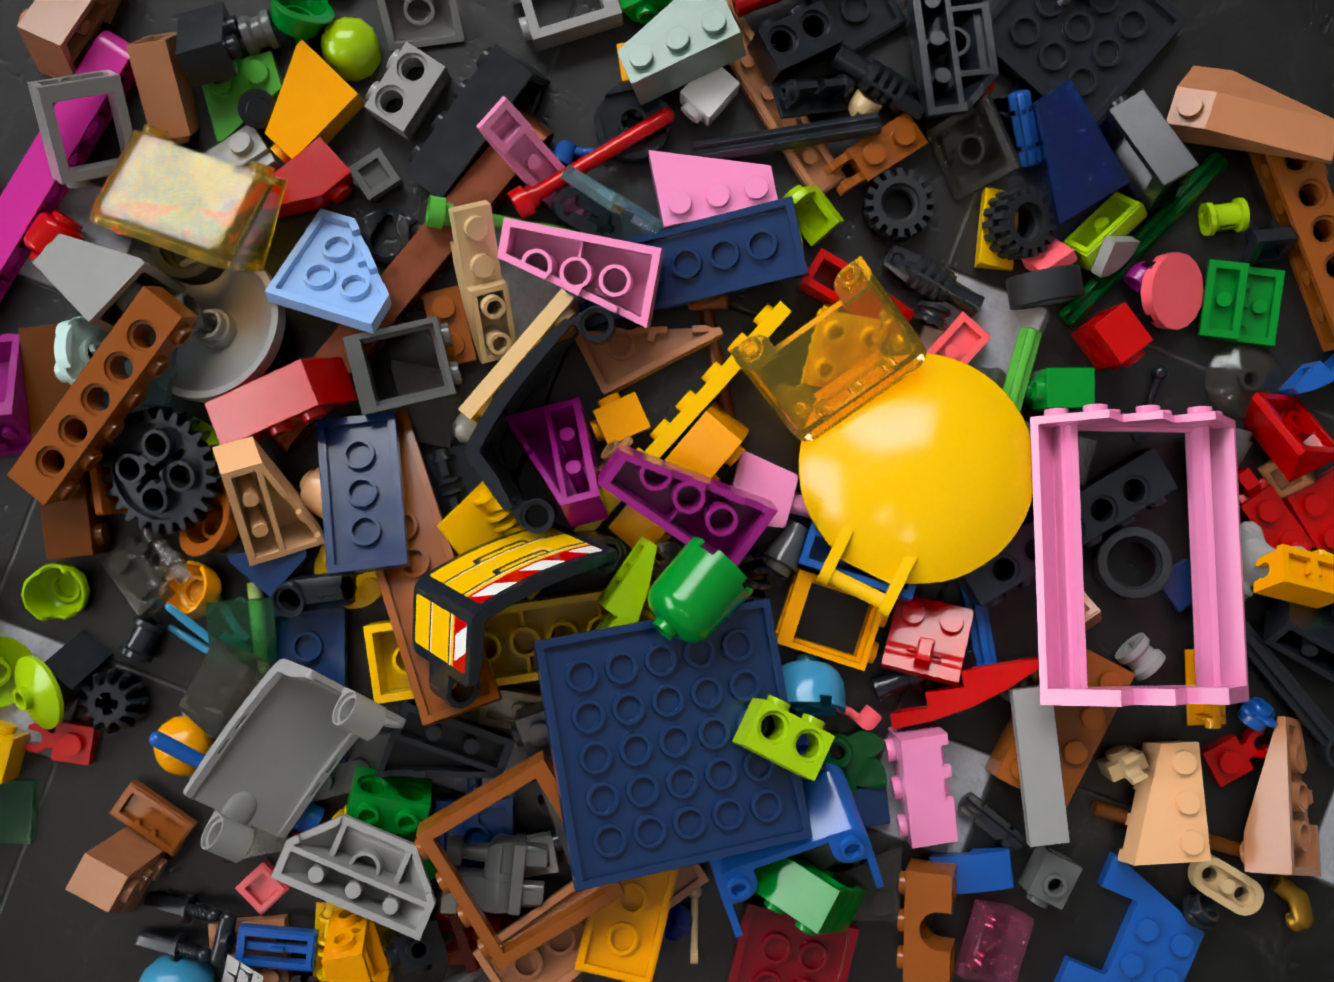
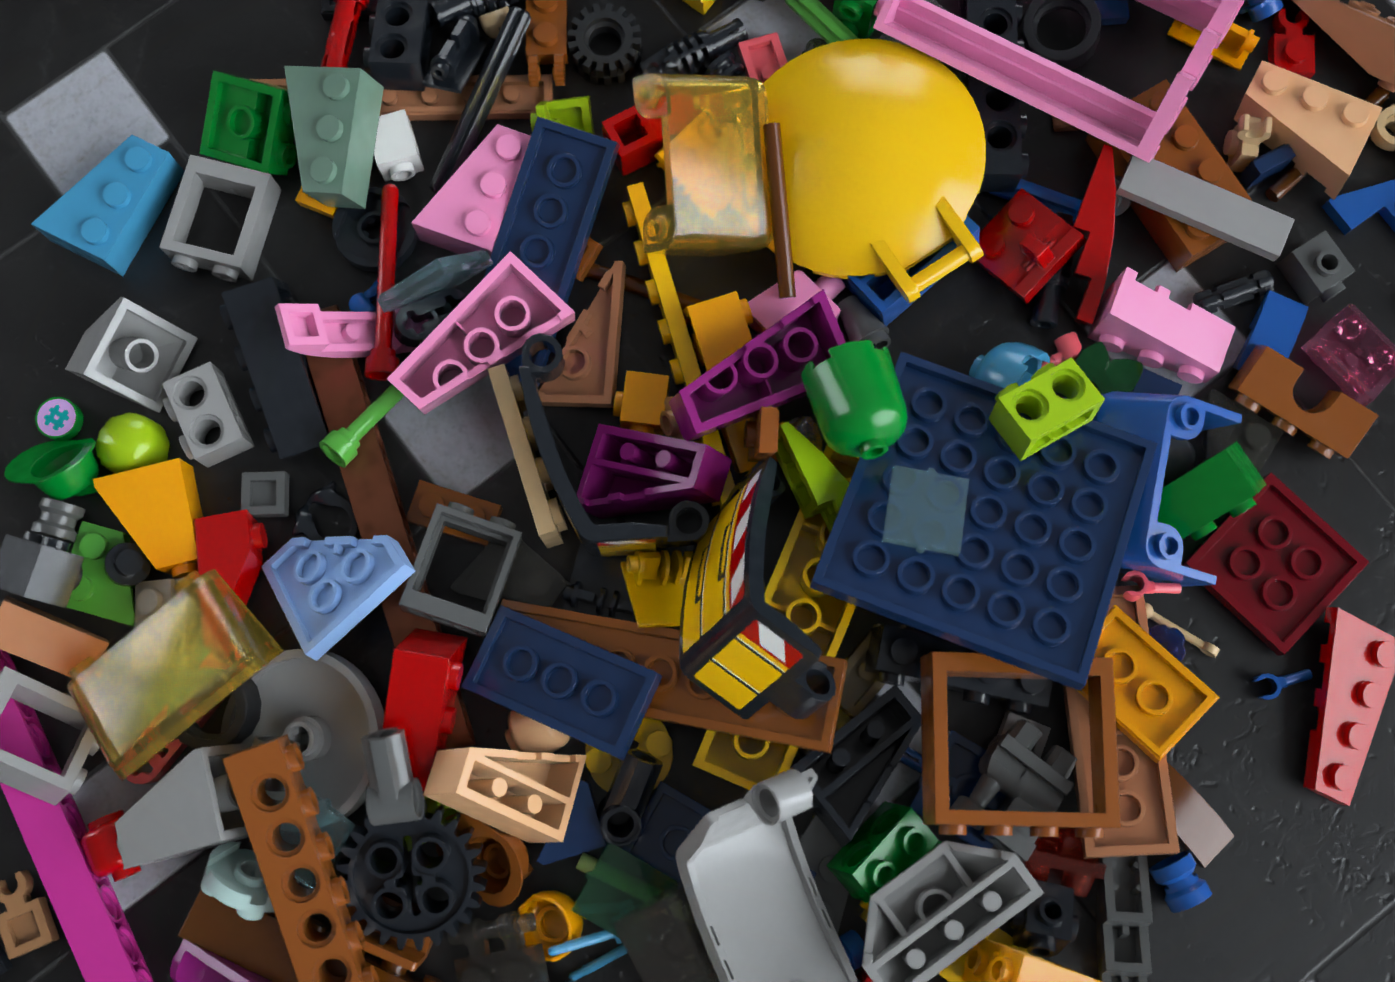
camera: 65 degrees left, 10 degrees down
(202, 422) = (392, 791): none -> dark grey piece
(463, 428) = (560, 553): light grey hinge -> none
(481, 281) = (430, 453): tan slope -> none
(634, 532) = (762, 434): none -> dark orange plate
(645, 694) = (925, 510): none -> clear light blue piece
(709, 888) = (1147, 587): none -> coral hand
(830, 434) = (779, 210): none -> reddish brown bar
(865, 648) = (976, 285): light orange window -> none
(1114, 791) = (1266, 166): none -> dark blue tile
(1140, 656) = (1150, 70): light grey wheel -> none

